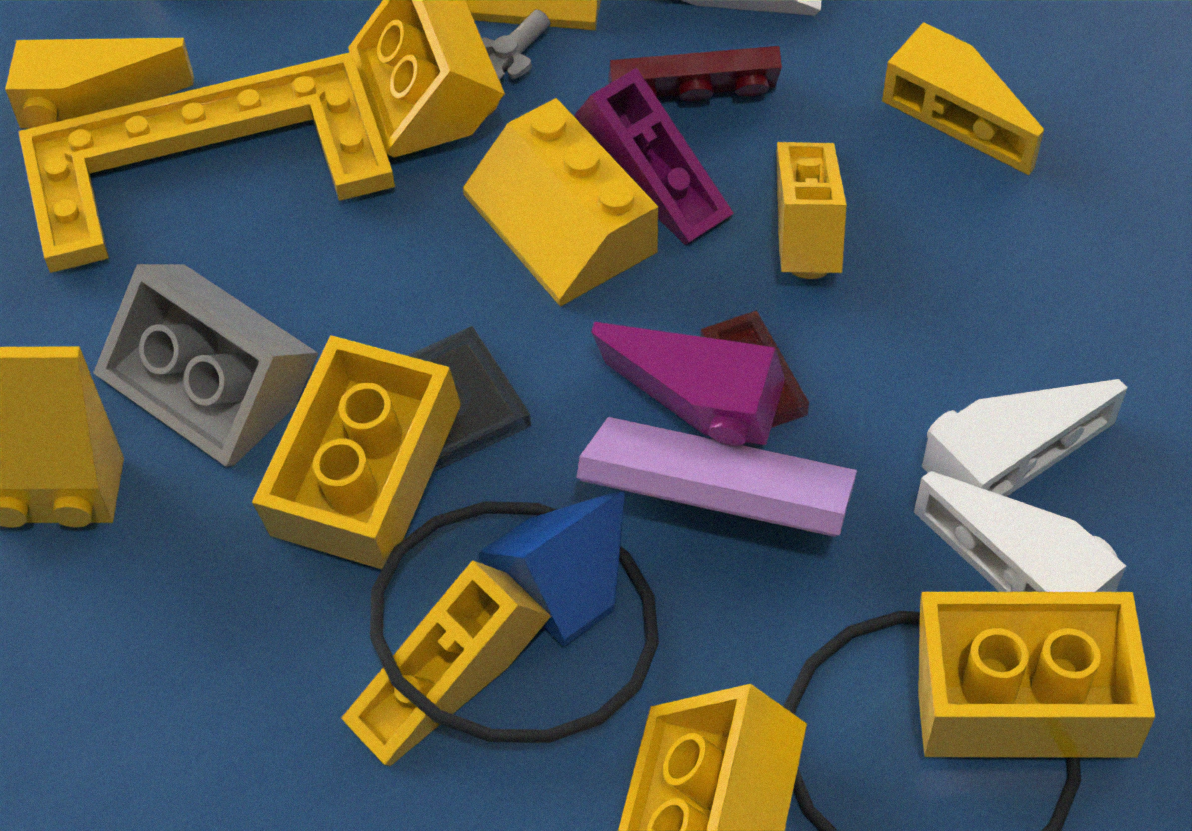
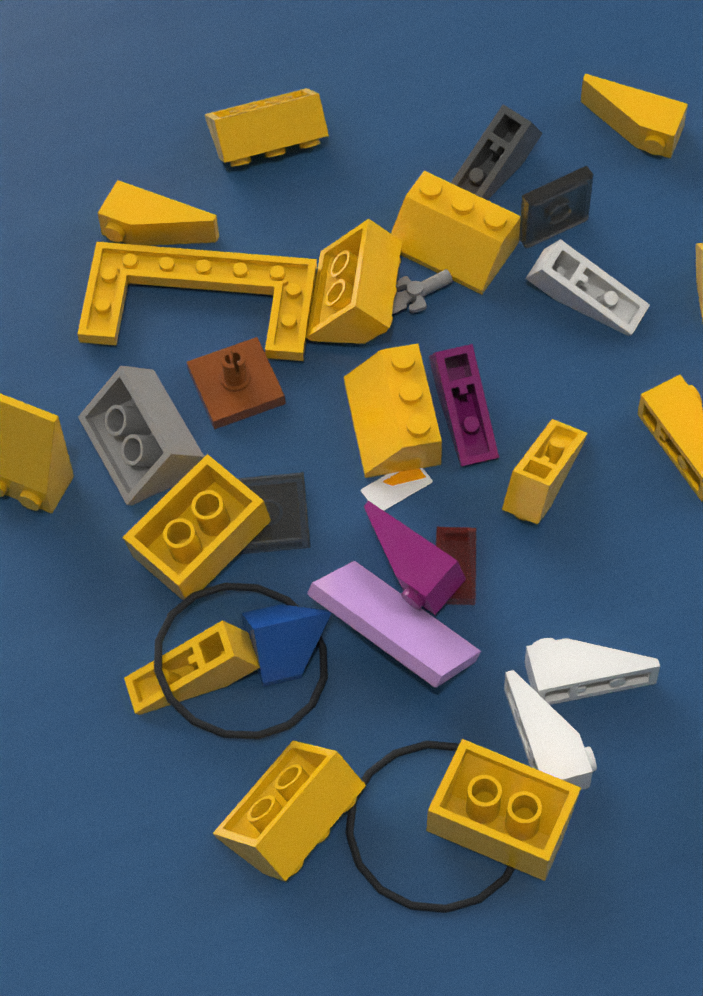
camera: 25 degrees right, 5 degrees up
(311, 247) = (236, 383): none -> dark orange tile
(610, 301) = (395, 487): none -> white sticker
(704, 73) = (521, 355): dark red plate -> none

